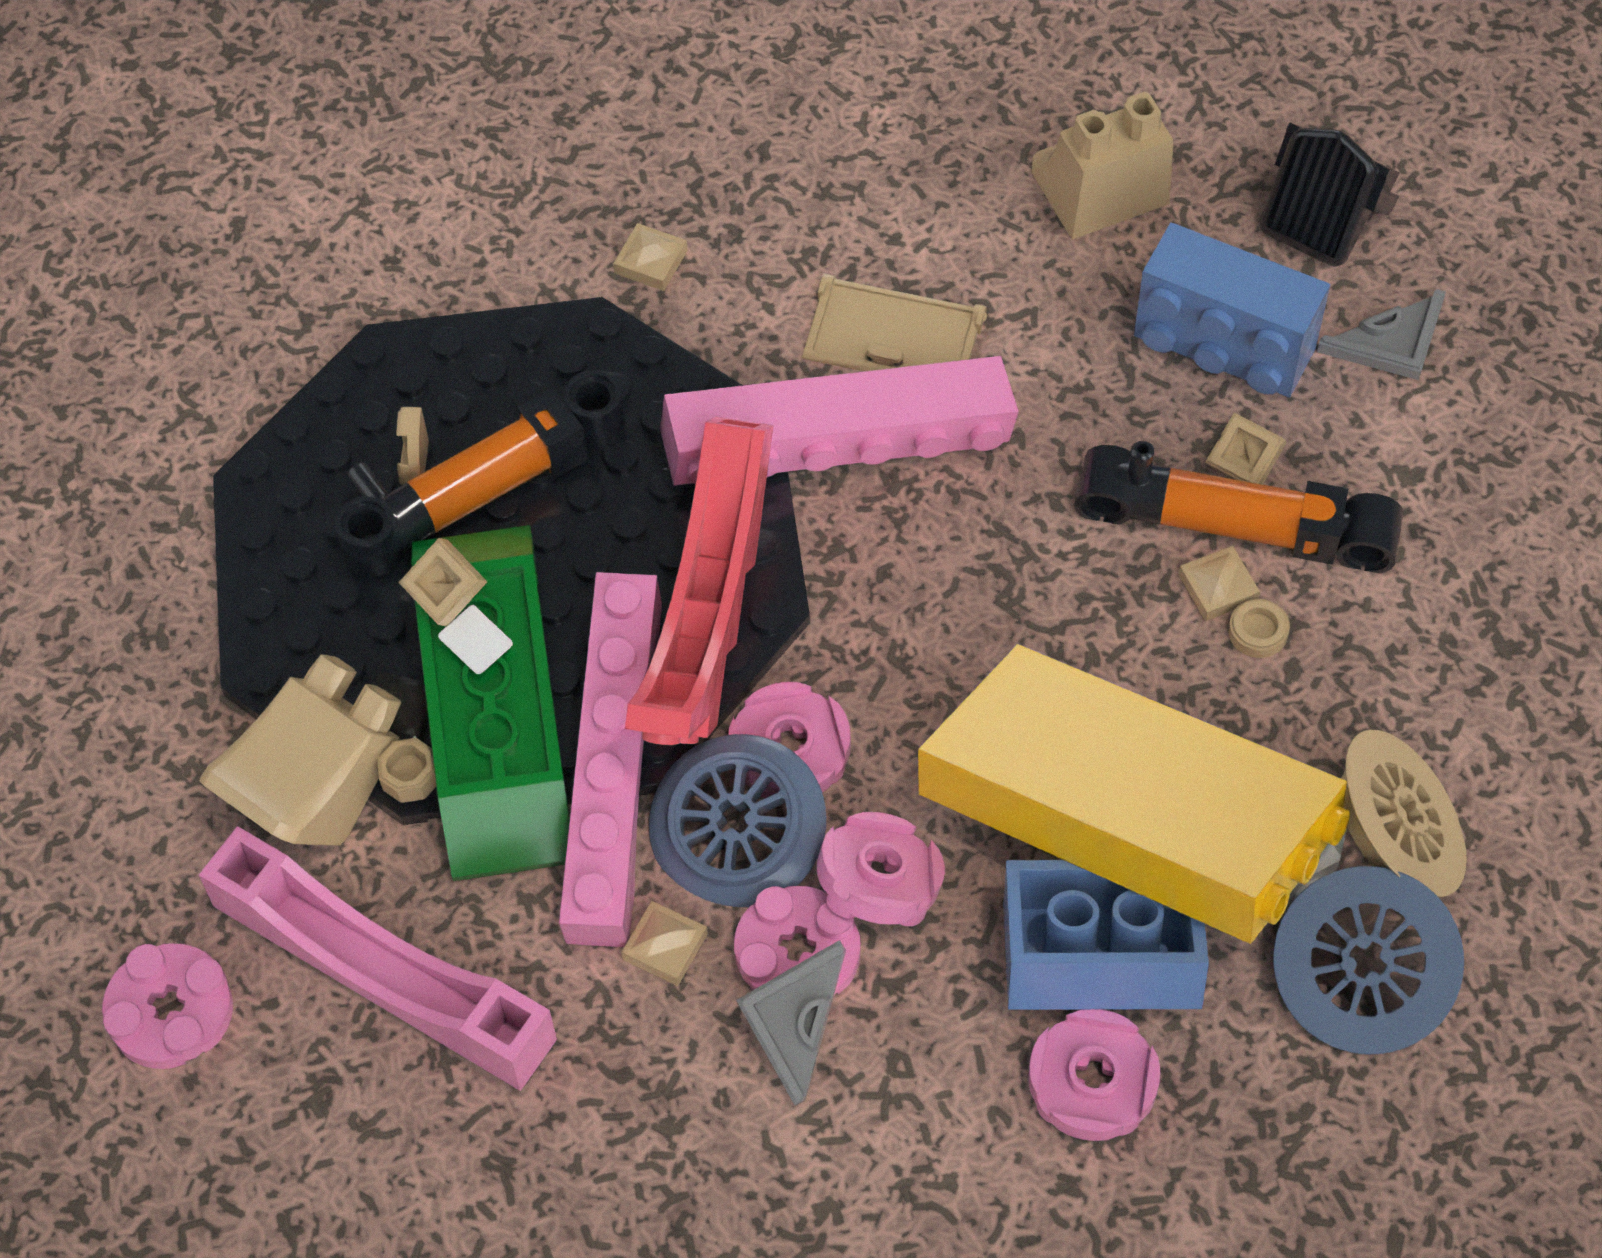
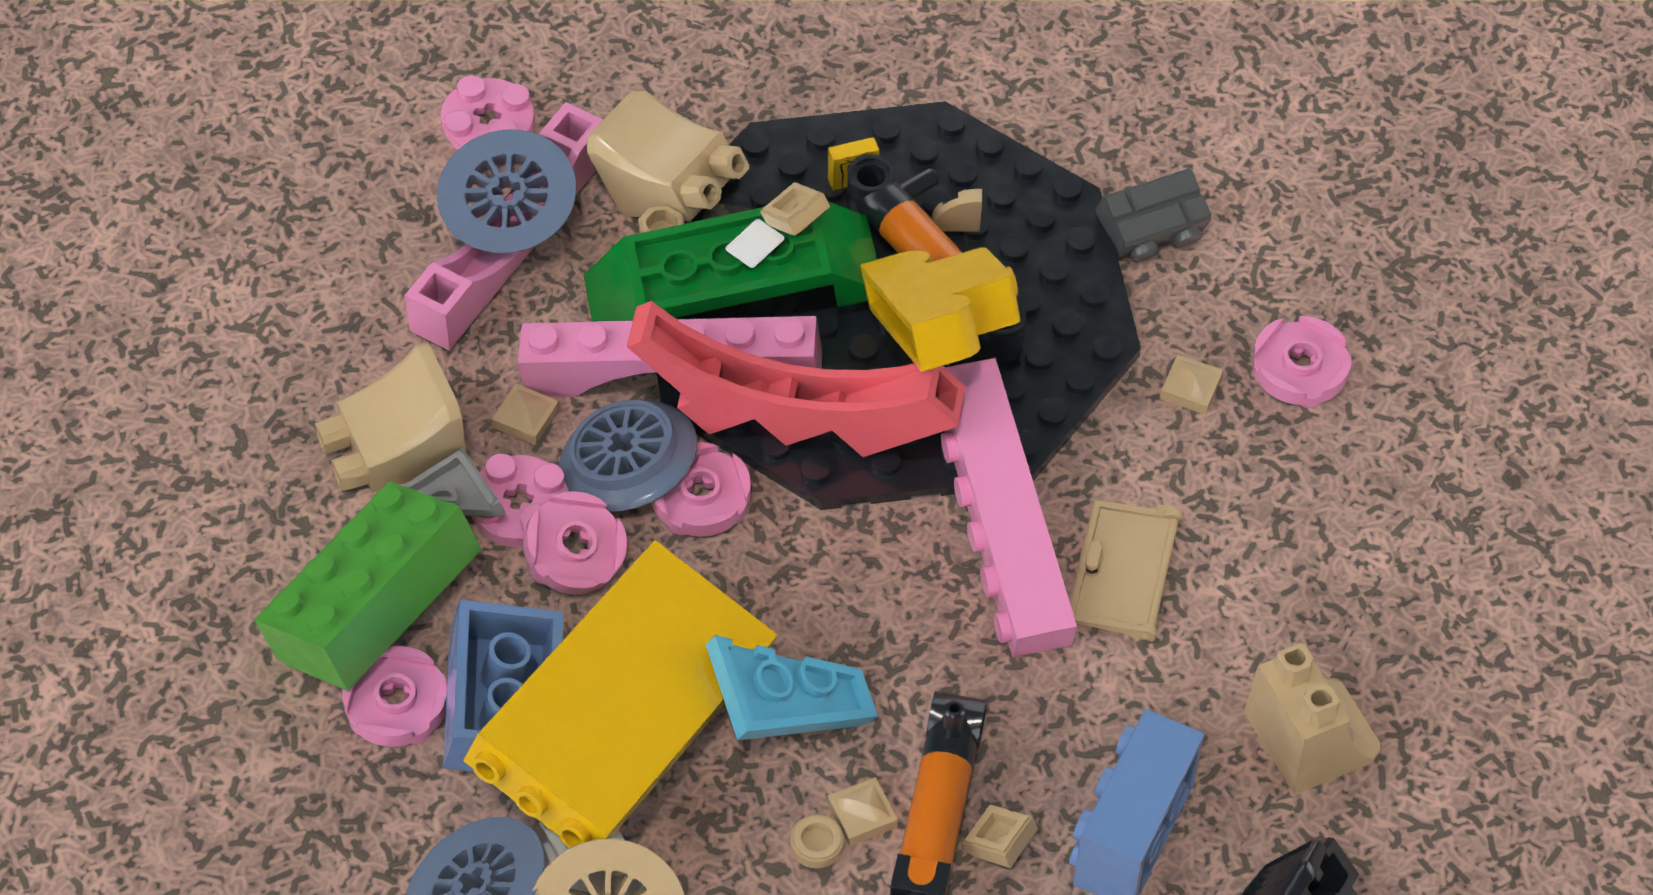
camera: 85 degrees right, 5 degrees down
(327, 554) = (842, 155): none -> yellow tile
(348, 880) = (485, 154): none -> sand blue piece
(420, 266) = (1155, 215): none -> dark grey brick
(606, 429) = (941, 304): none -> yellow brick
(627, 179) = (1295, 383): none -> bright pink plate
(696, 1079) = (394, 425): none -> tan hips
(952, 1099) = (368, 585): none -> bright green brick
(1101, 633) = (785, 695): none -> medium azure wing

